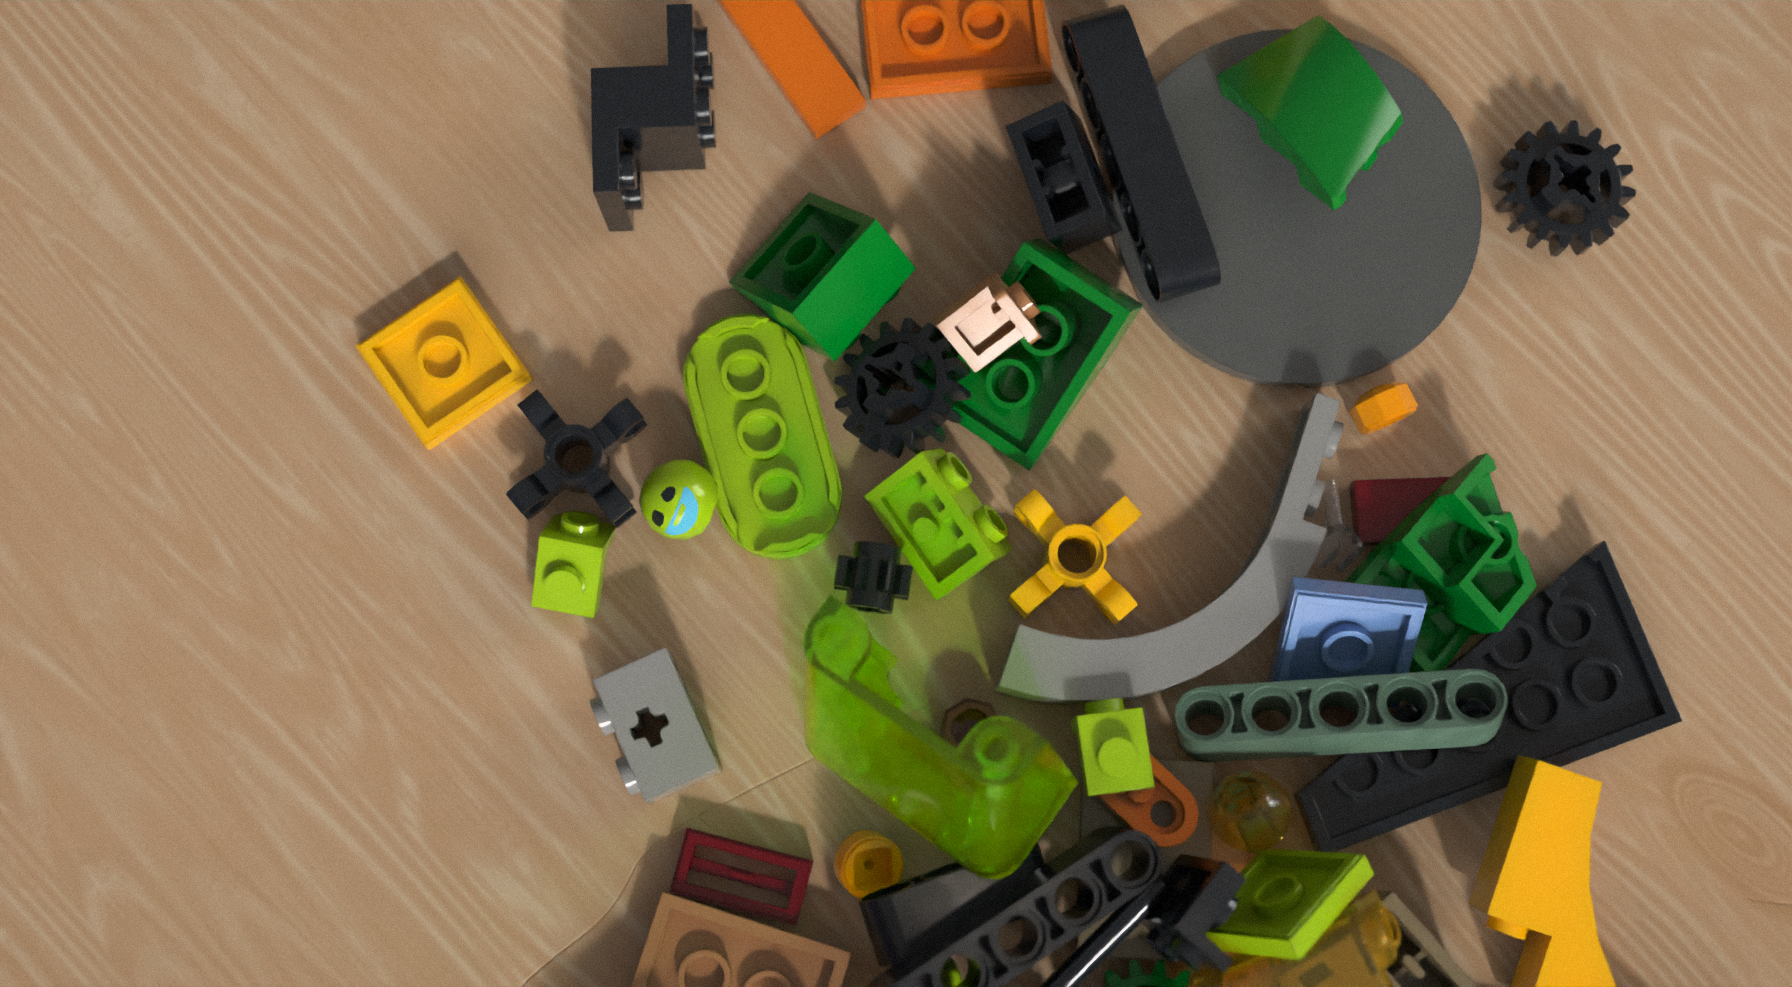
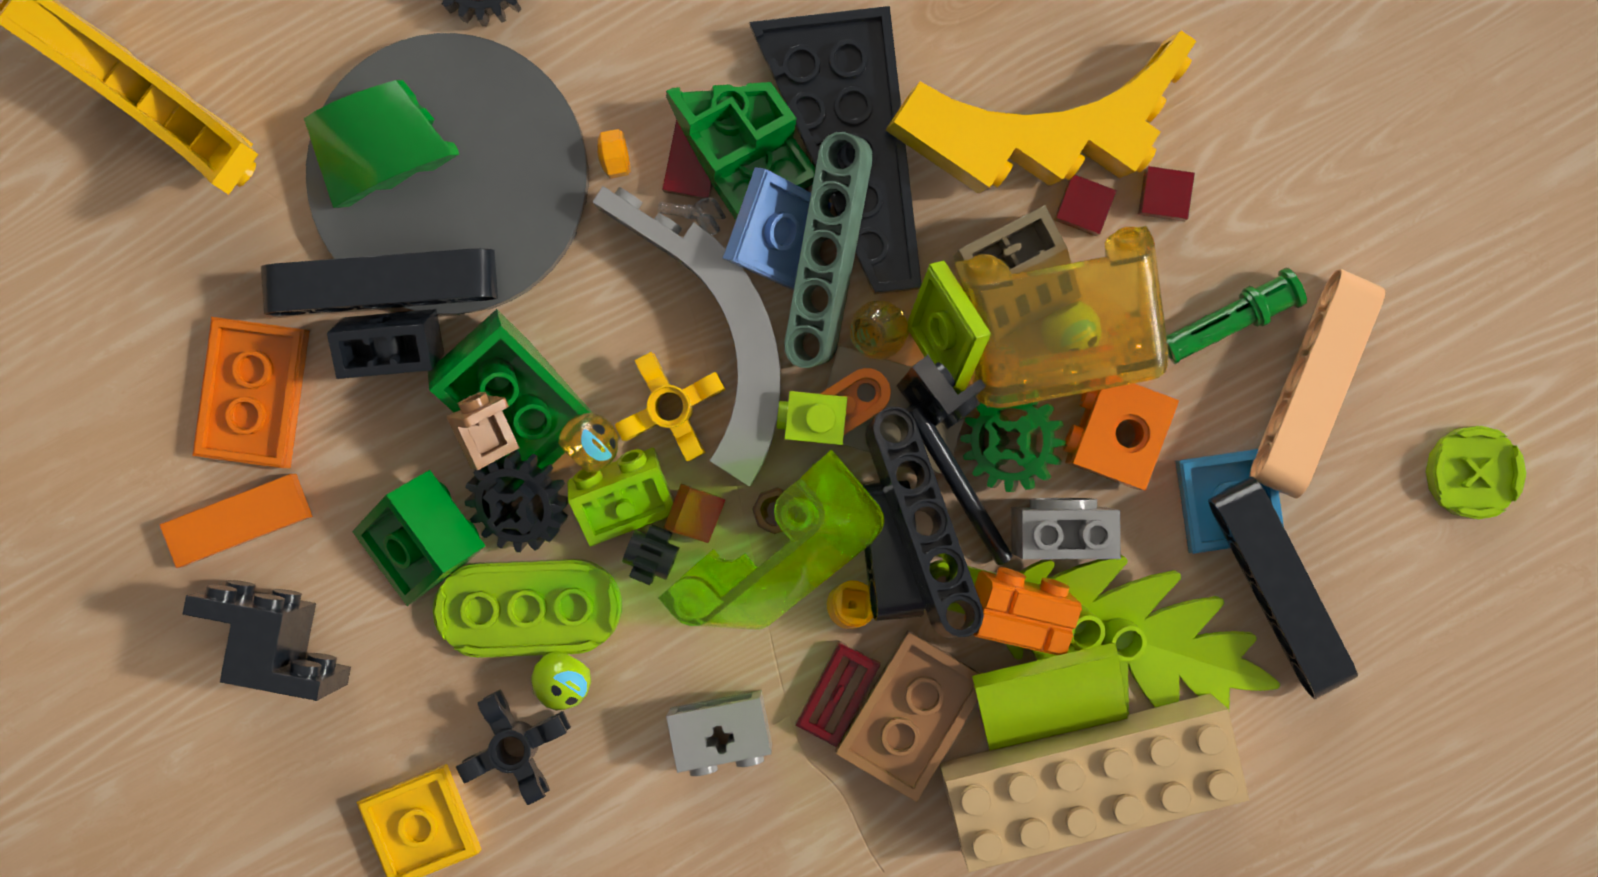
camera: 70 degrees left, 10 degrees up
(572, 563) = (589, 766): lime bracket -> none
(941, 623) = (694, 513): none -> tile
(1003, 462) = (590, 441): none -> clear yellow piece

